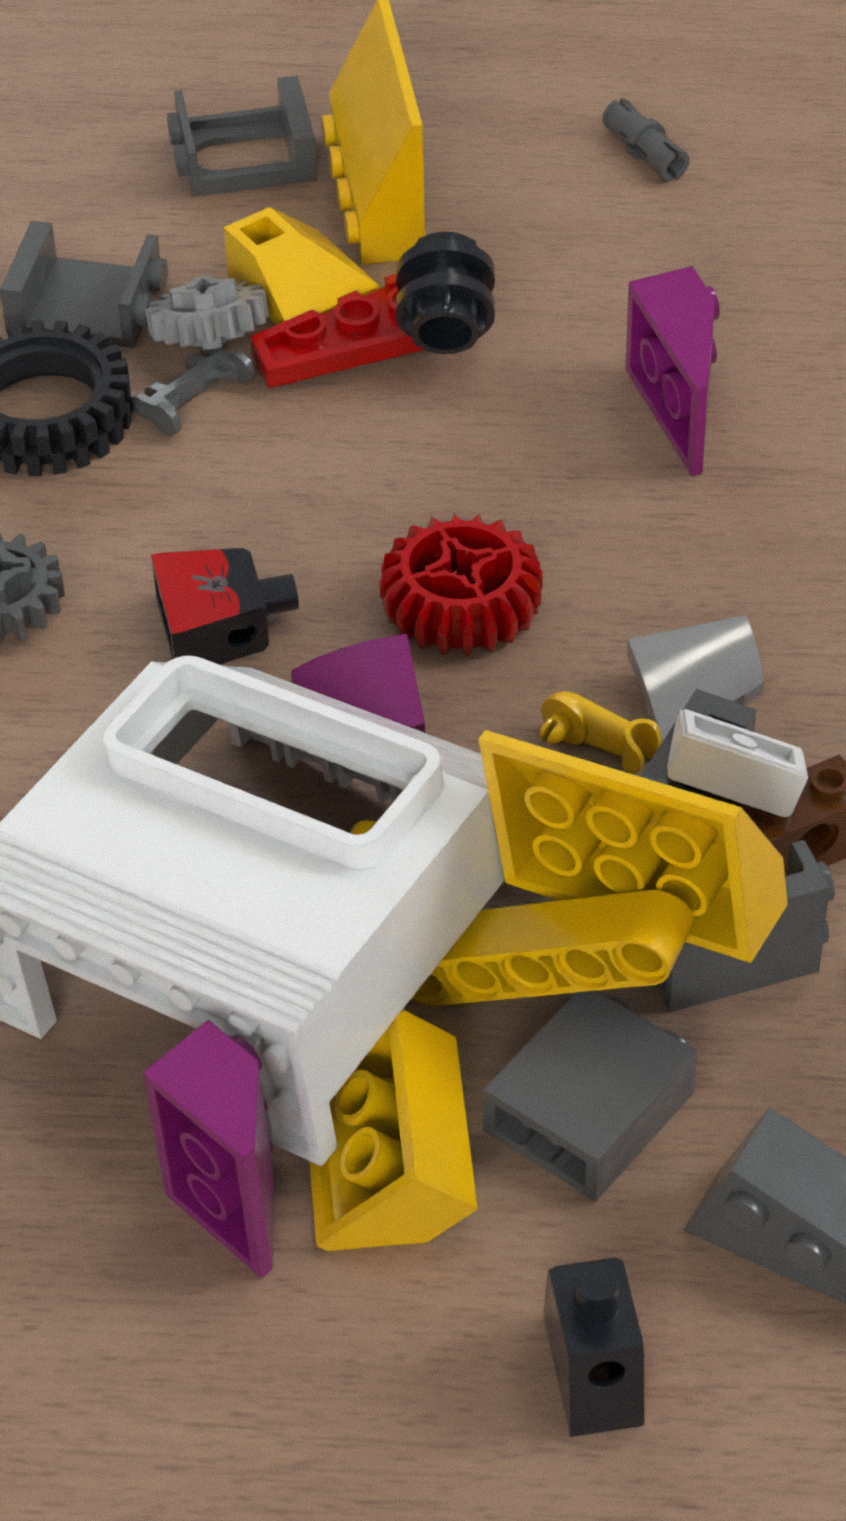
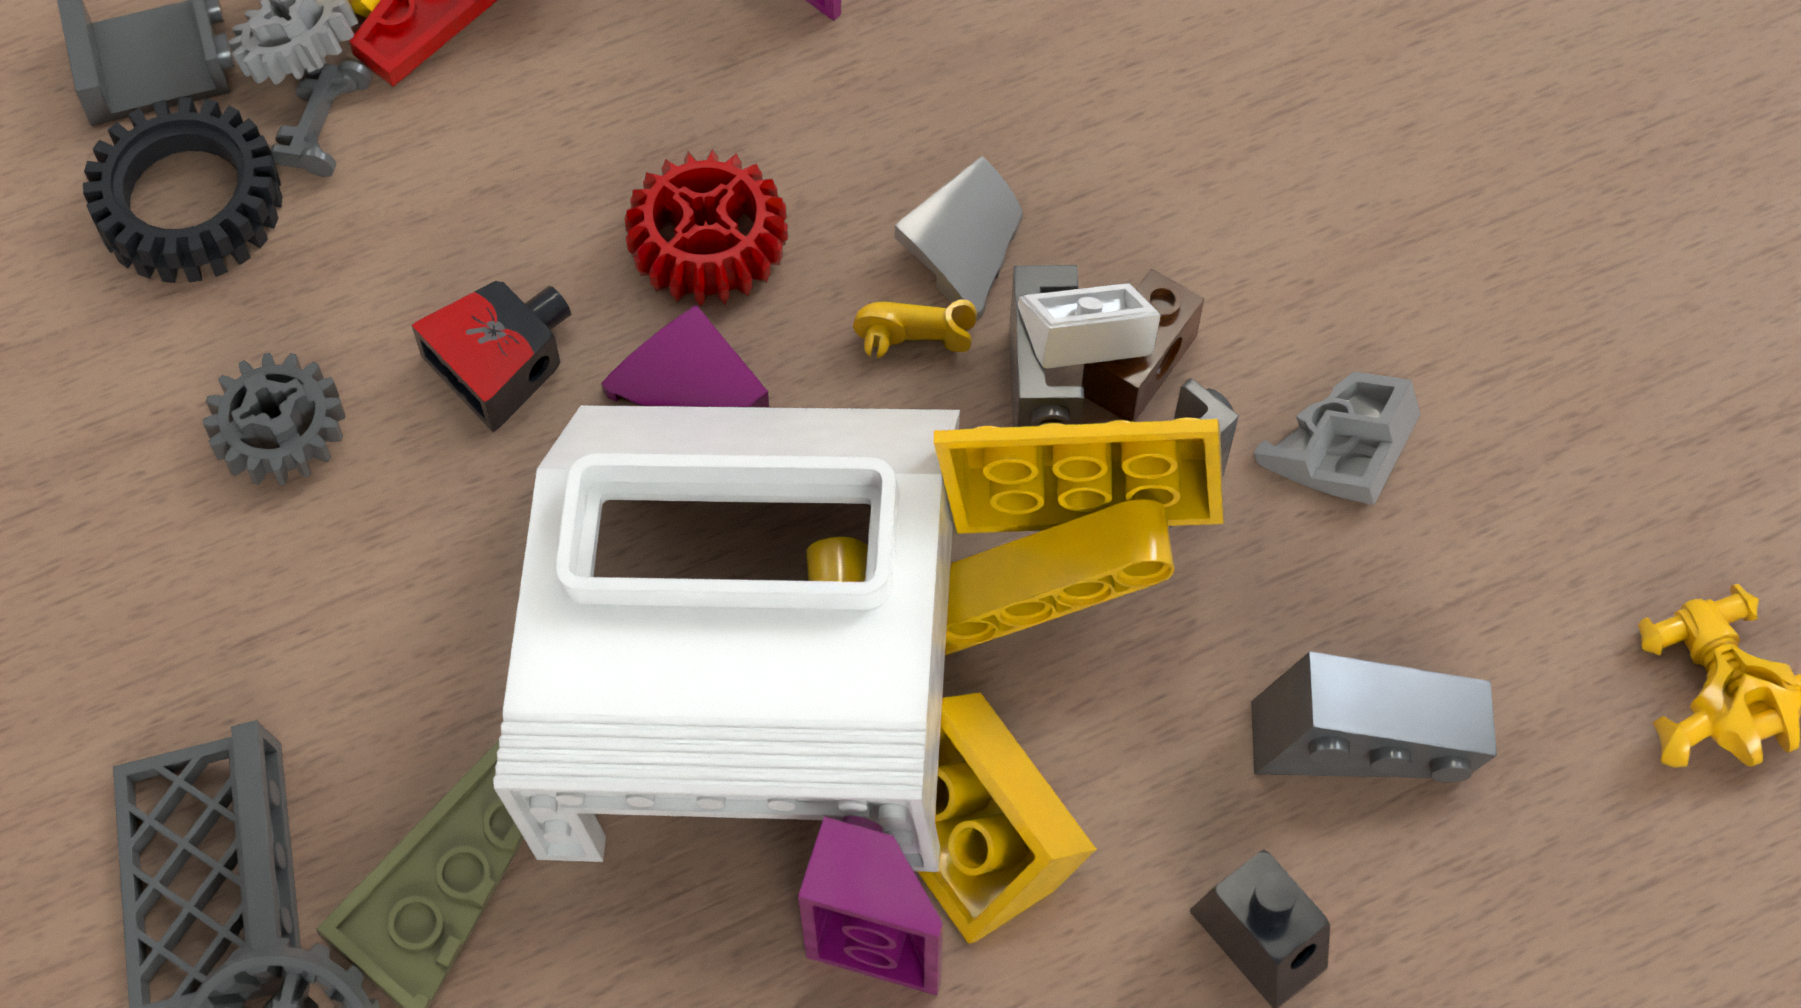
camera: 30 degrees left, 15 degrees up
(590, 1091) = (1118, 689): dark grey brick -> none

